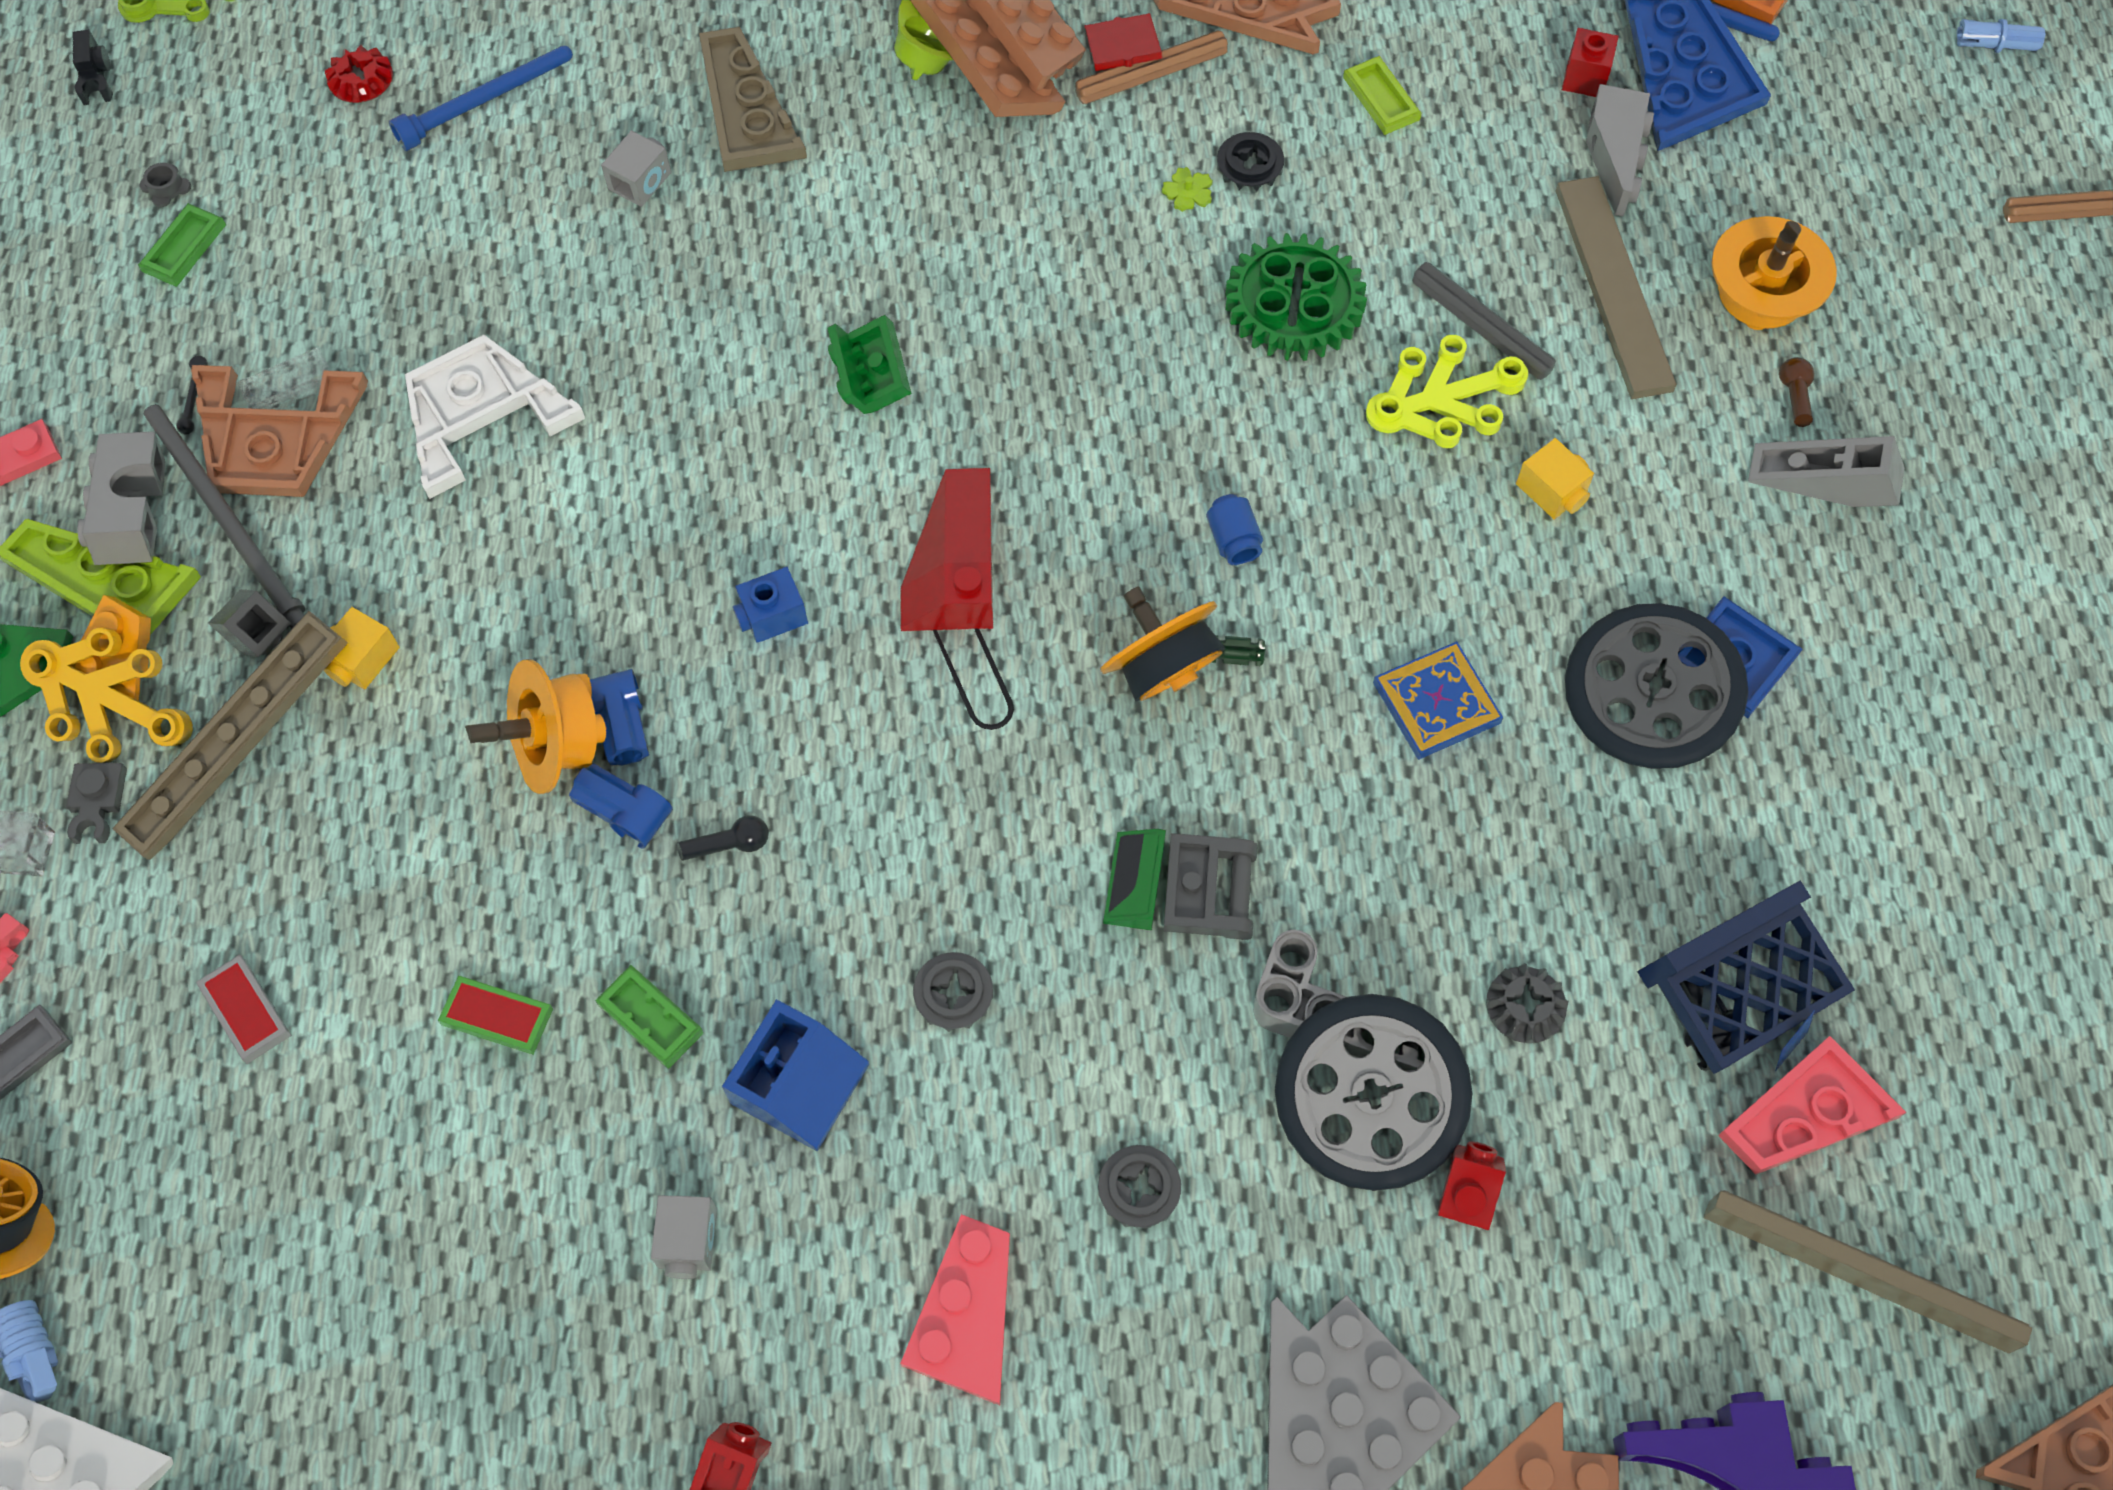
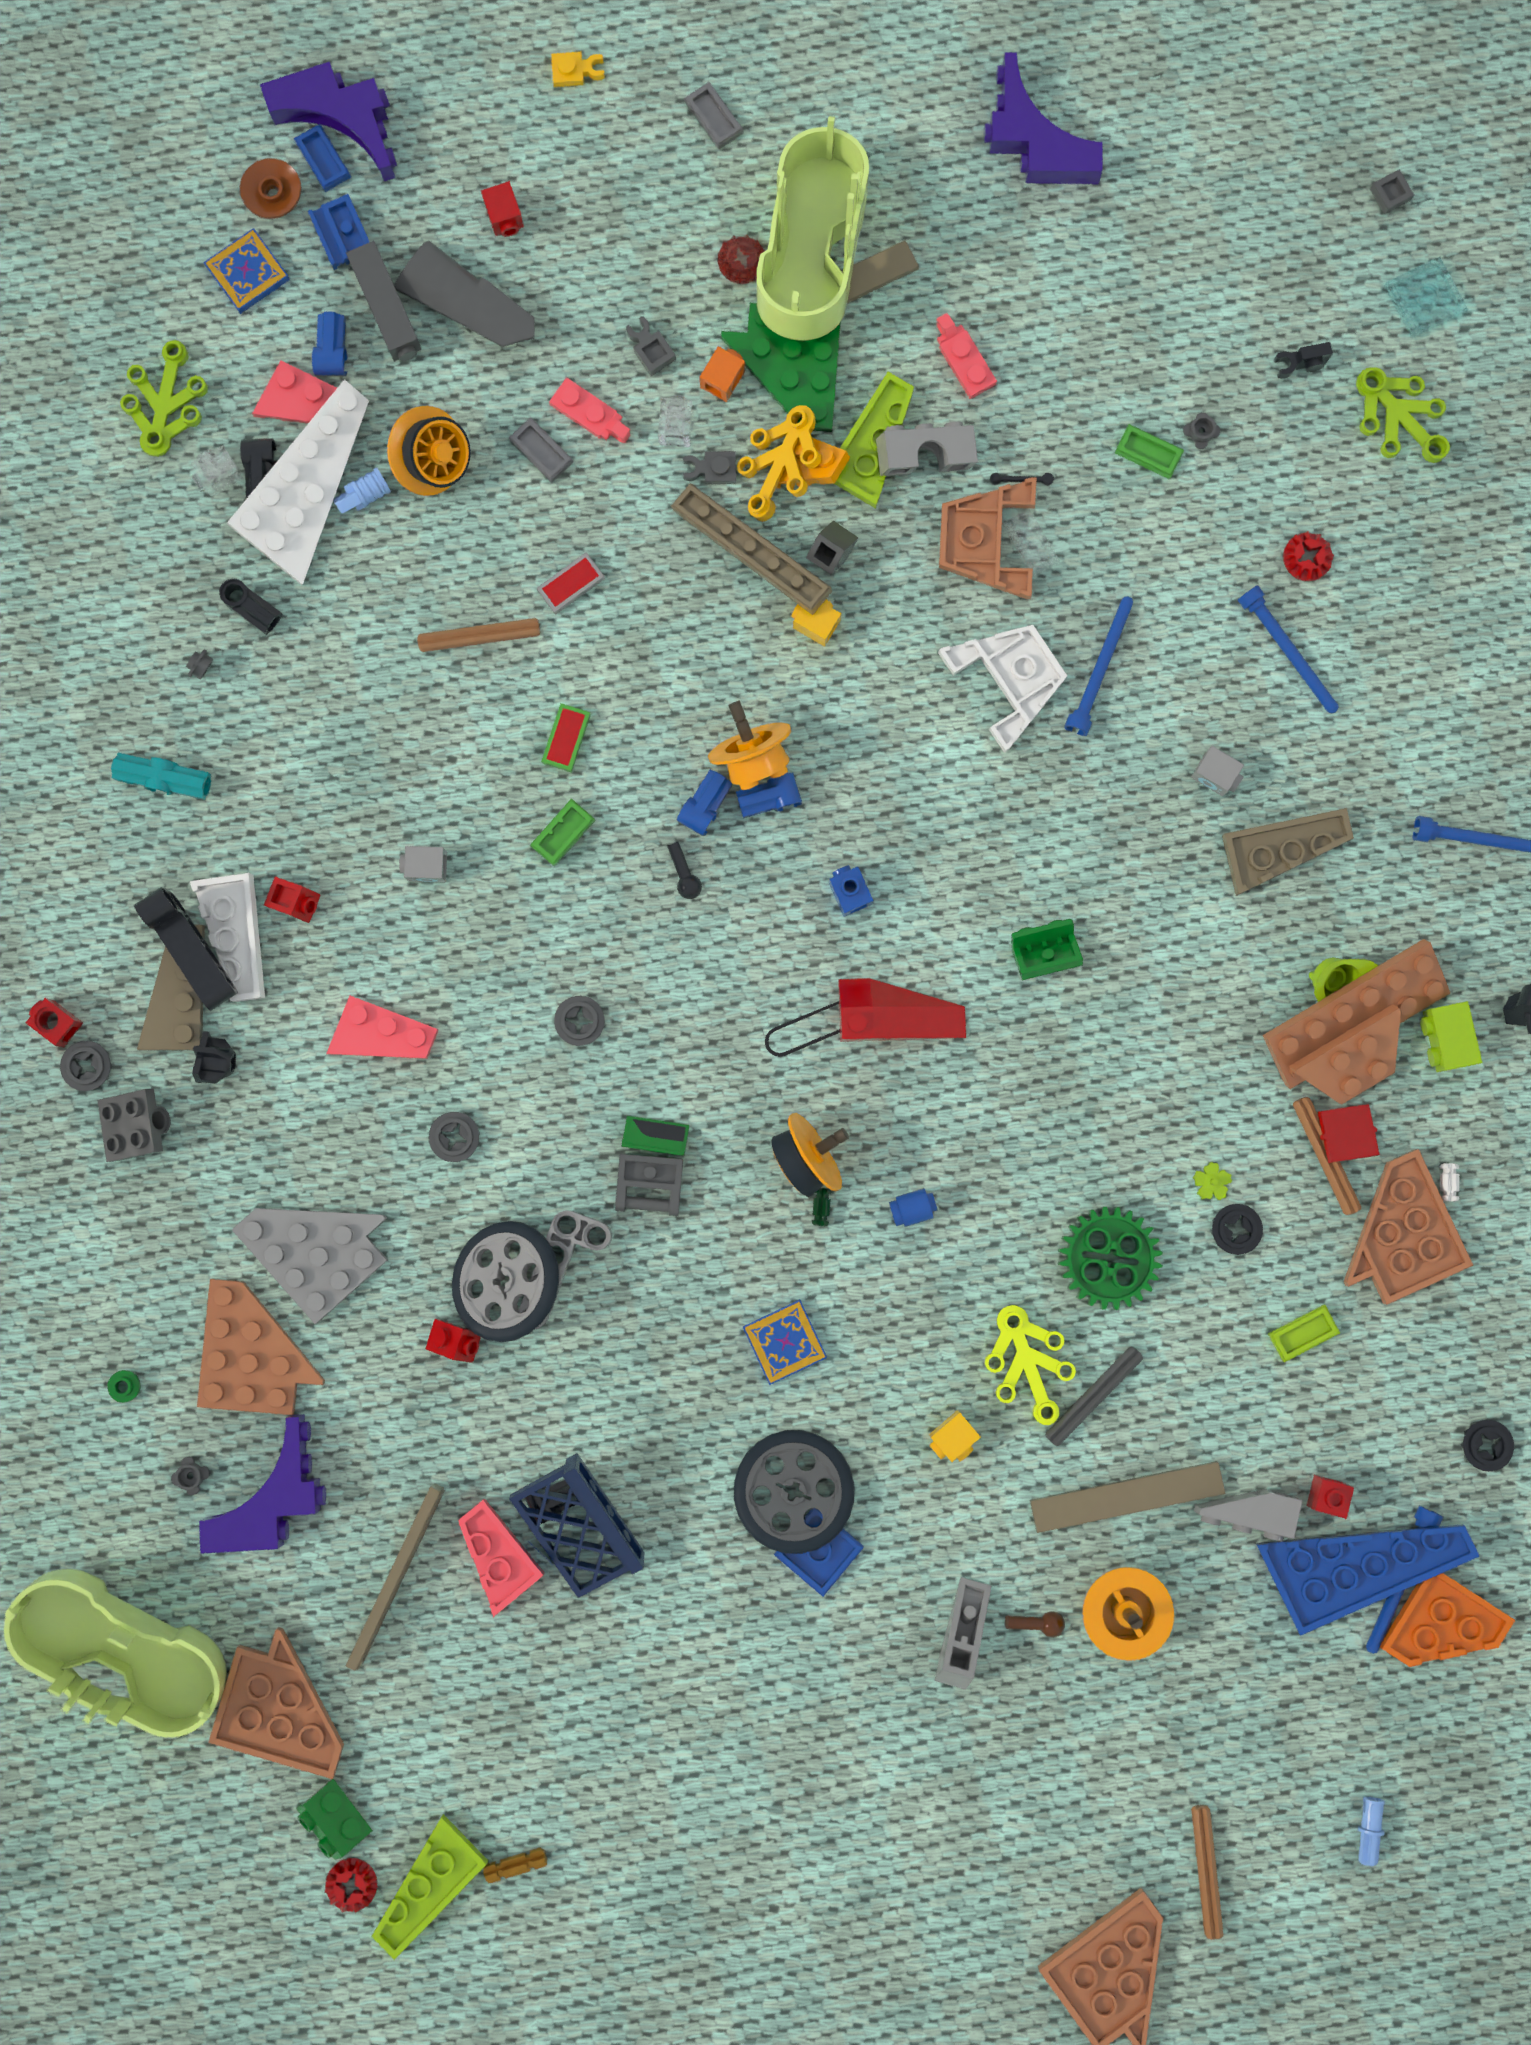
camera: 90 degrees right, 20 degrees up
(288, 606) = (850, 570): dark grey bar -> none
(306, 1155) = (478, 635): none -> medium nougat axle
(544, 323) = (1081, 717): none -> blue piece
(795, 1075) = (519, 925): blue slope -> none
(1512, 1017) = (581, 1374): dark grey gear -> none

